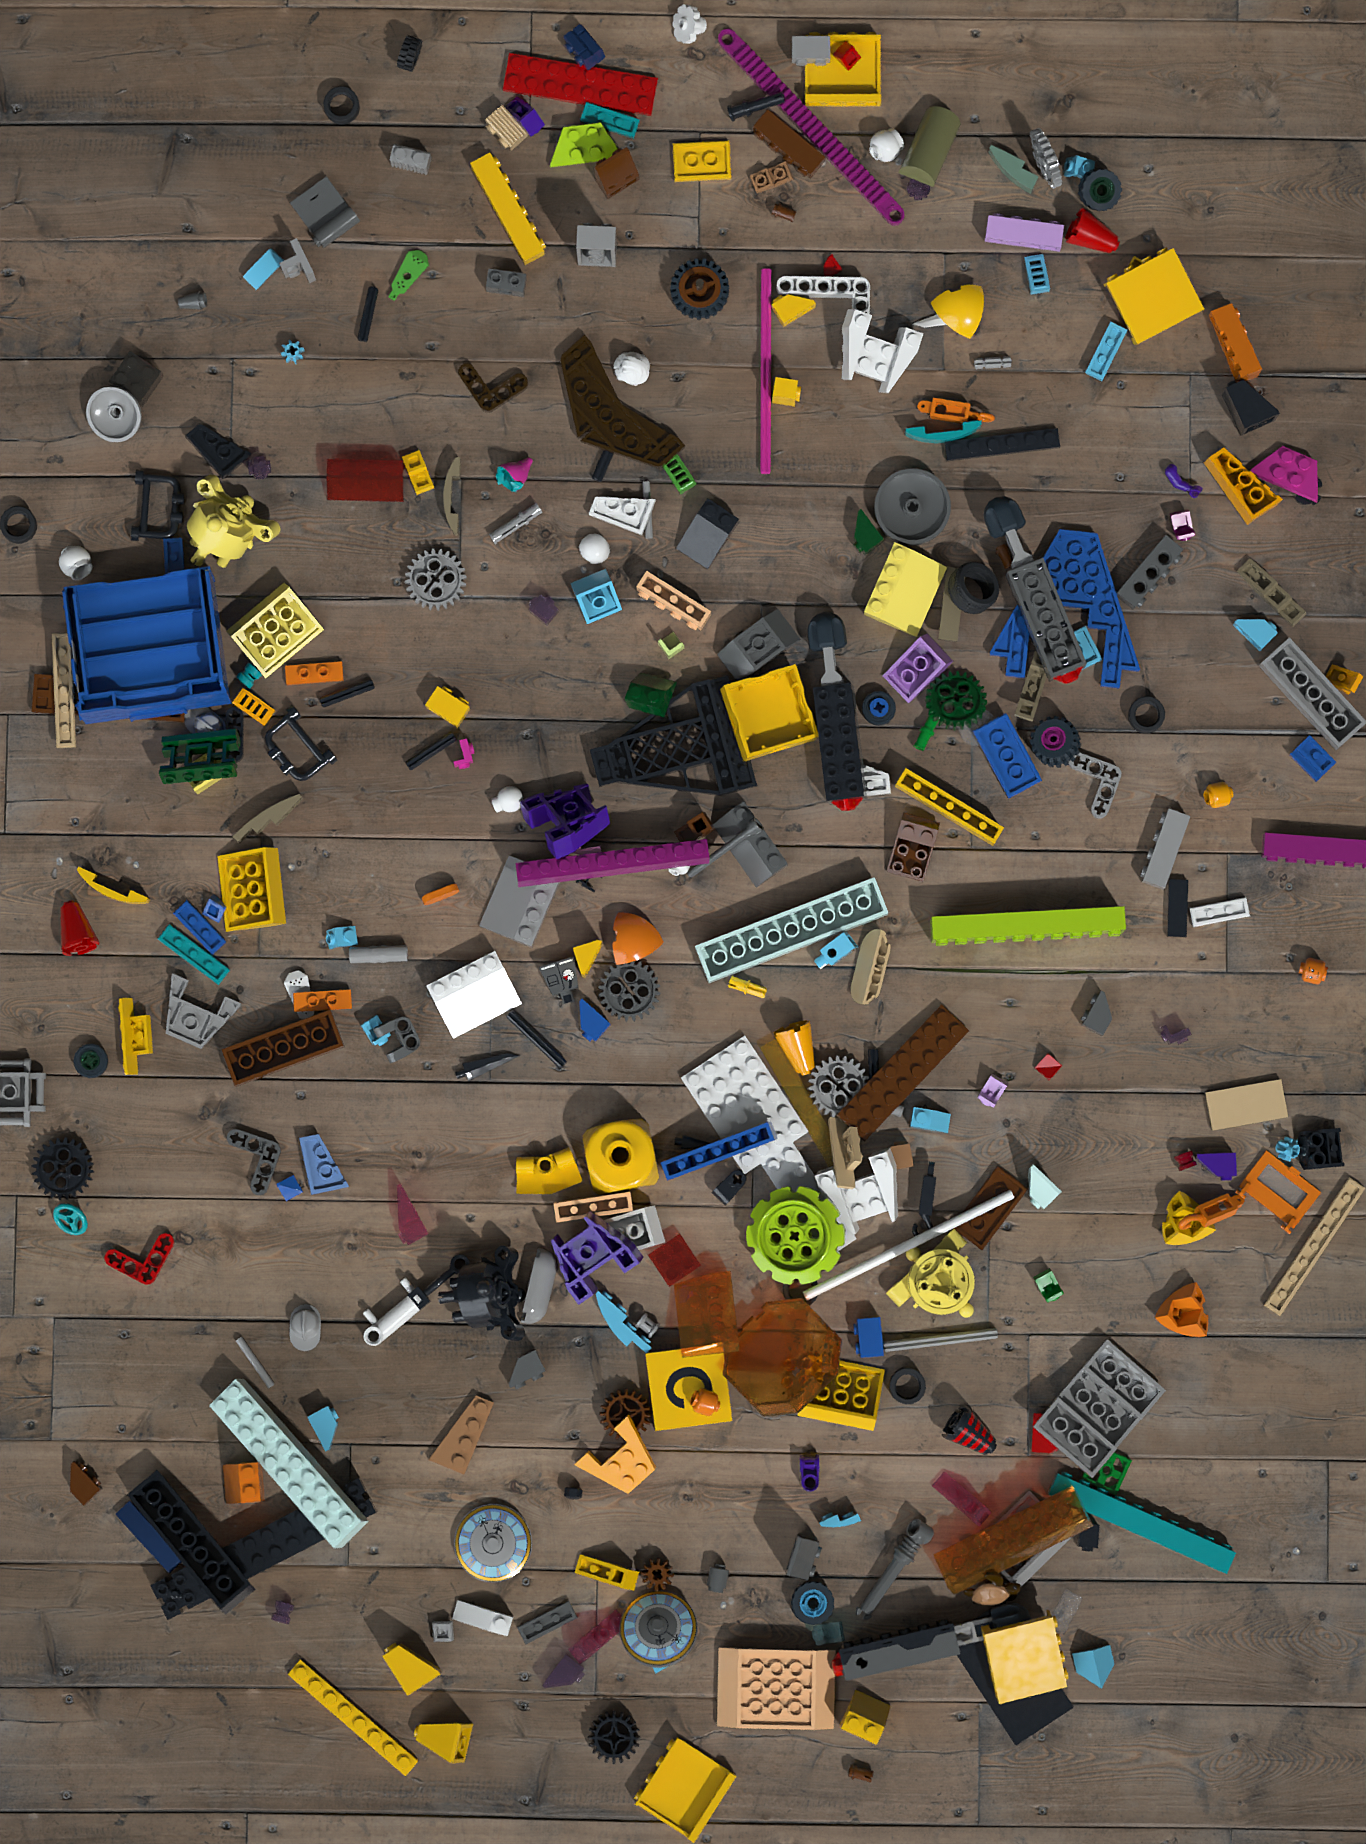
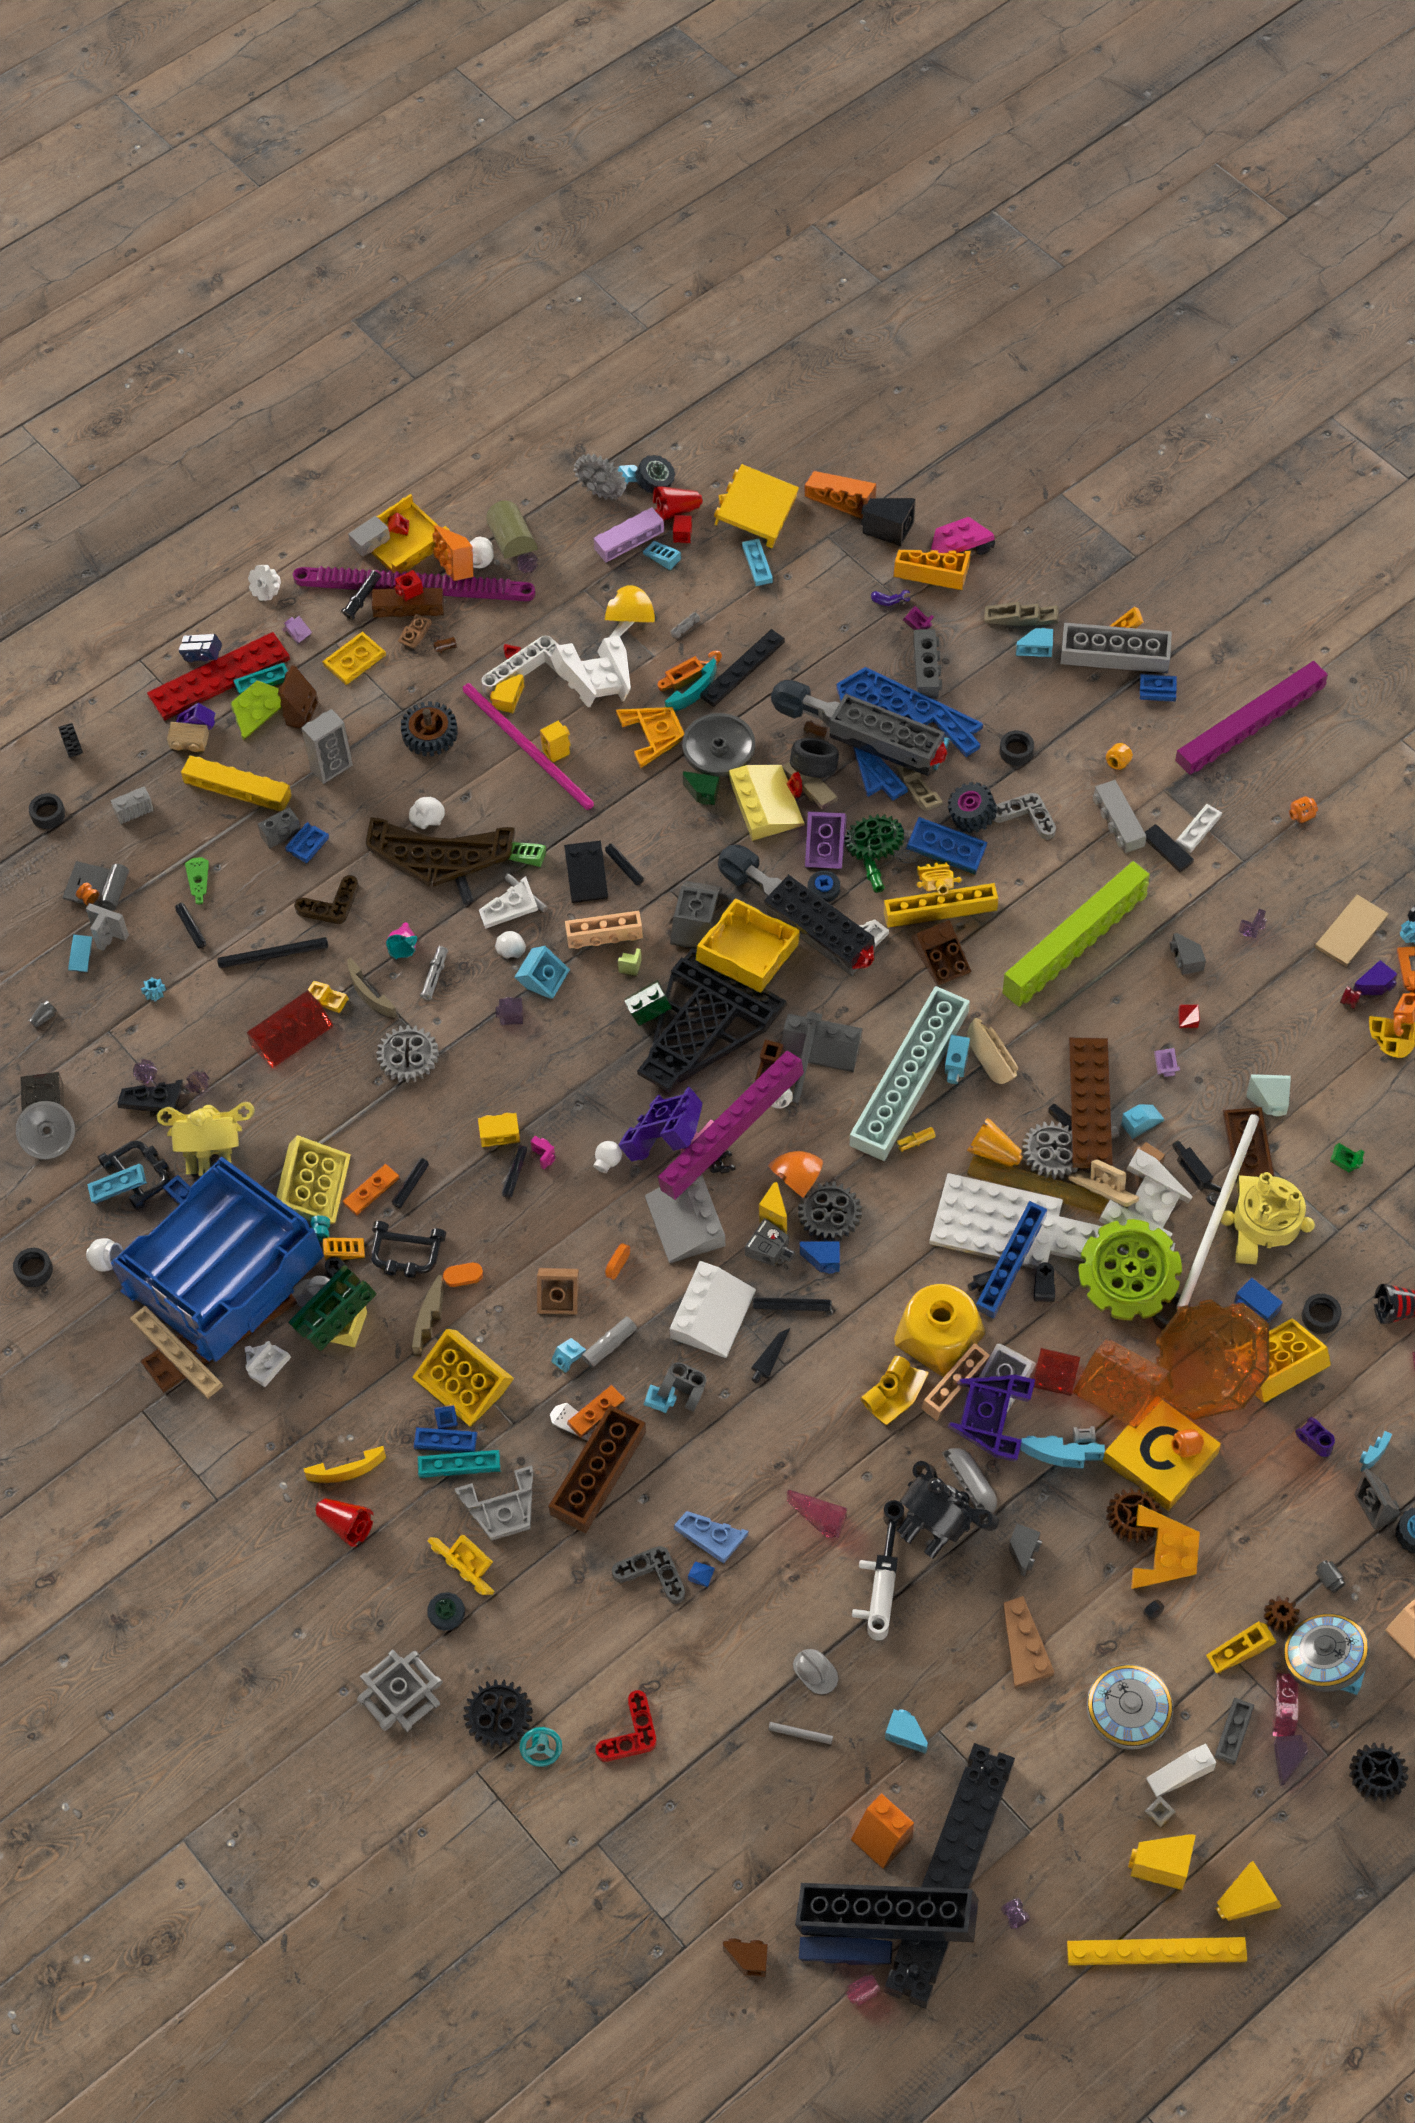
camera: 40 degrees left, 25 degrees down
(123, 751) = (265, 1362): none -> white slope
(131, 507) = (117, 1183): none -> medium azure plate
(137, 1572) = (862, 1990): none -> clear pink brick
(228, 423) = (144, 1071): none -> gear
(288, 1463) = (907, 1776): light aqua brick -> none
(309, 219) = (87, 893): none -> orange wheel
(322, 804) = (463, 1274): none -> orange tile
(377, 880) = (557, 1291): none -> medium nougat slope
(410, 395) = (273, 952): none -> black axle
(517, 314) = (307, 842): none -> blue plate
(678, 92) = (297, 629): none -> lavender bracket
(744, 550) = (624, 864): none -> black axle
(801, 141) = (408, 586): none -> red brick
(860, 132) = (453, 553): none -> orange slope
(883, 446) = (660, 729): none -> light orange wing
(937, 1340) = (1314, 1257): light grey axle -> none
(938, 598) = (795, 785): none -> red tile
(967, 781) = (936, 878): none -> yellow torso
(1013, 169) = (582, 507): sand green slope -> none
(1075, 263) = (682, 529): none -> red brick

